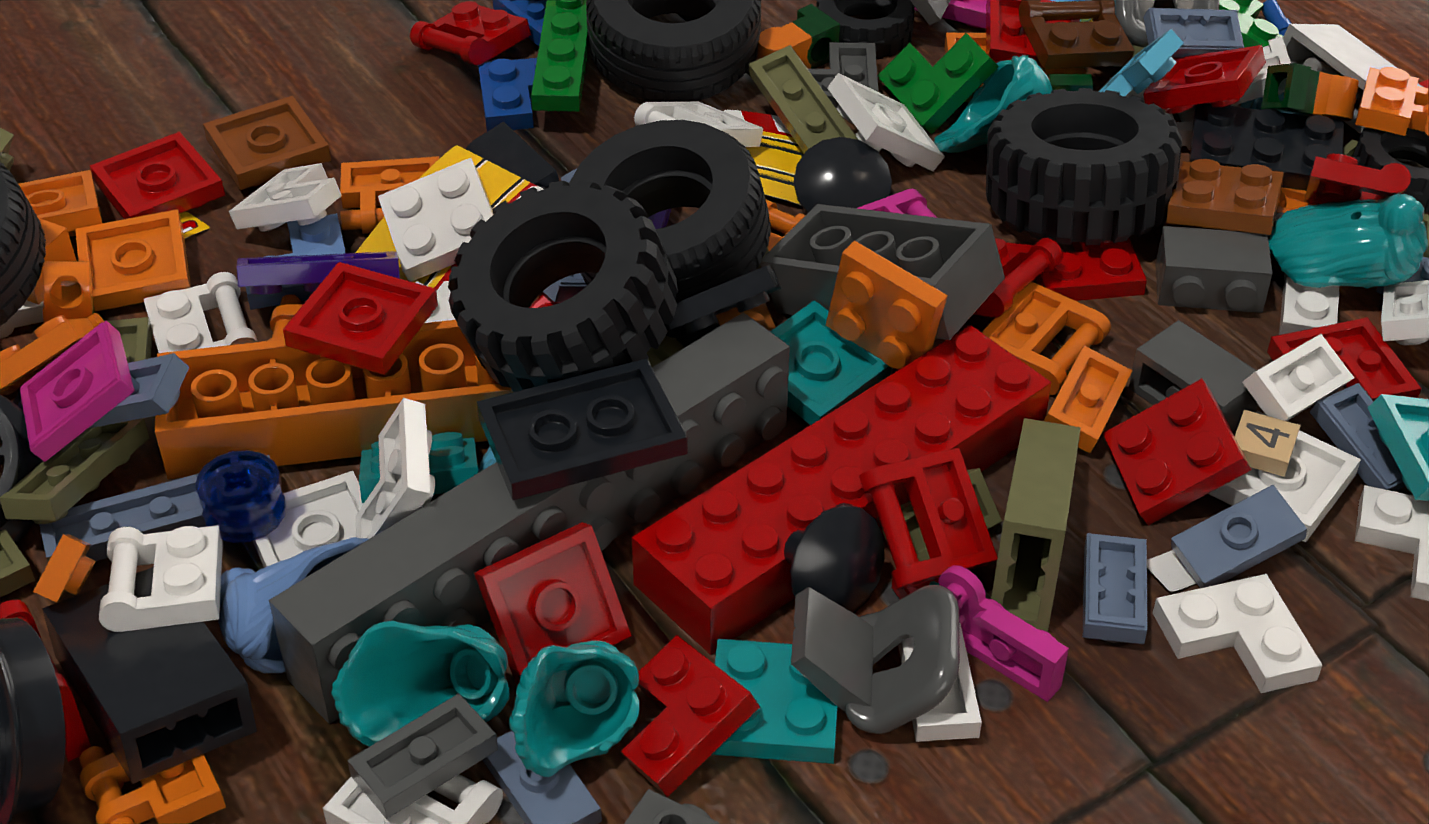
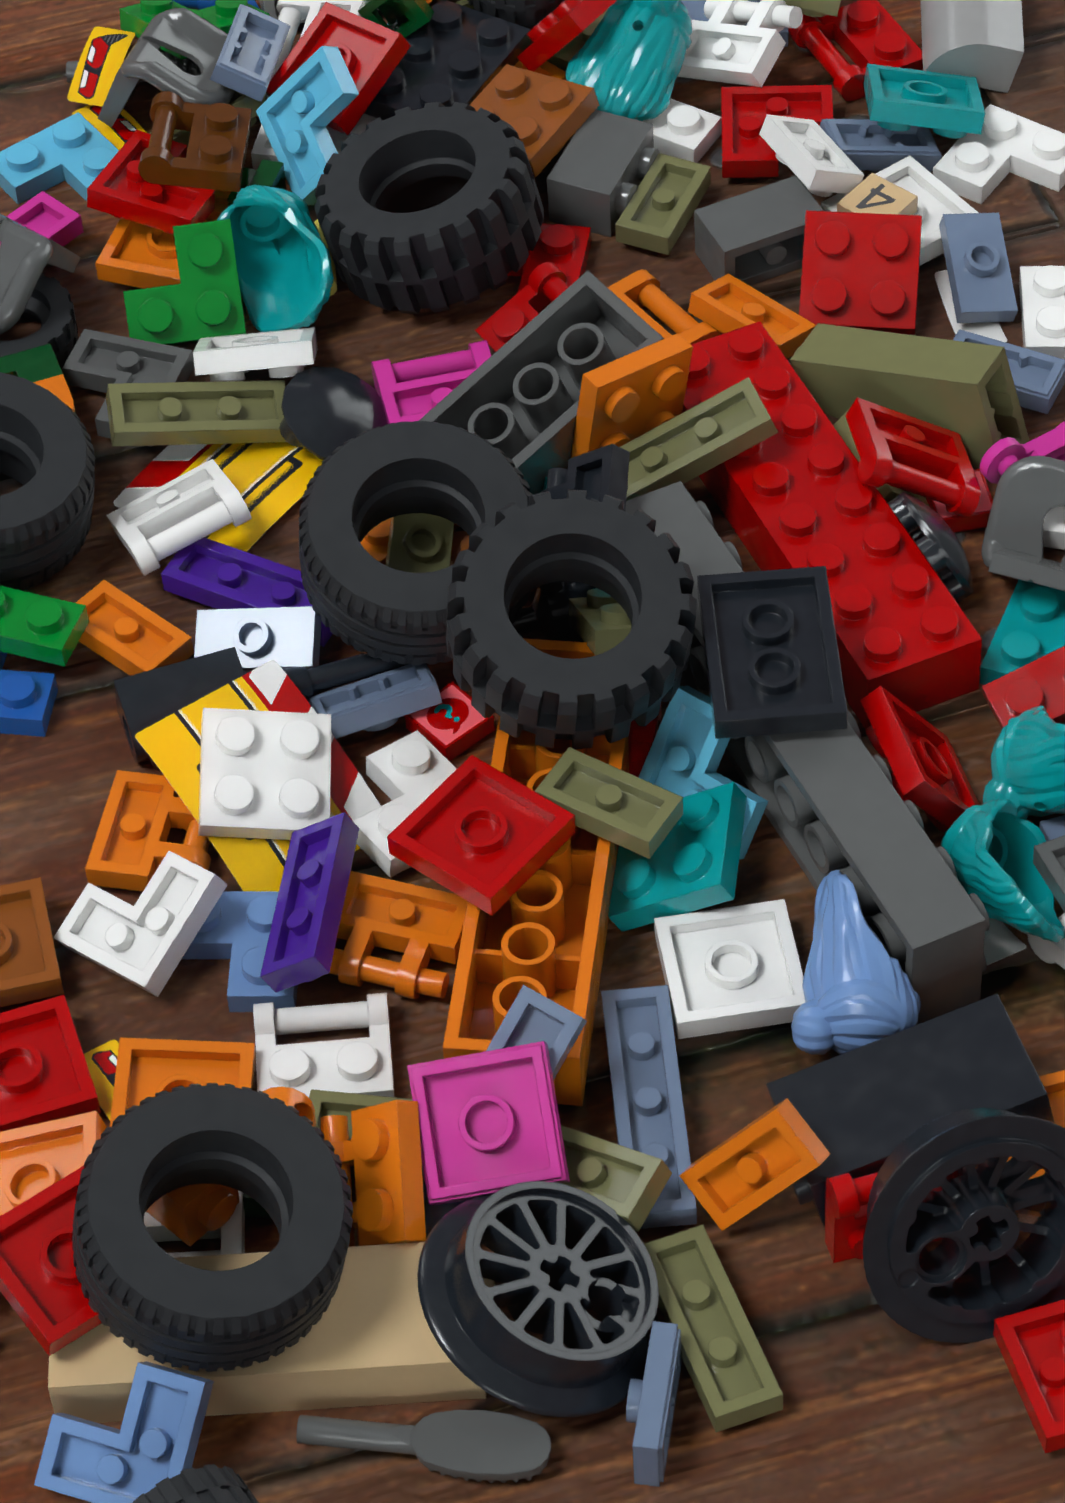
camera: 70 degrees left, 5 degrees up
(183, 583) = (810, 1050): white plate -> none
(241, 495) = (686, 1000): clear blue wheel -> none
(403, 471) = (769, 823): white plate -> none
(414, 372) = (612, 802): none -> olive plate
(581, 134) = (130, 632): none -> orange plate
(855, 355) = (698, 439): none -> olive plate
(1217, 316) = (663, 204): none -> olive plate

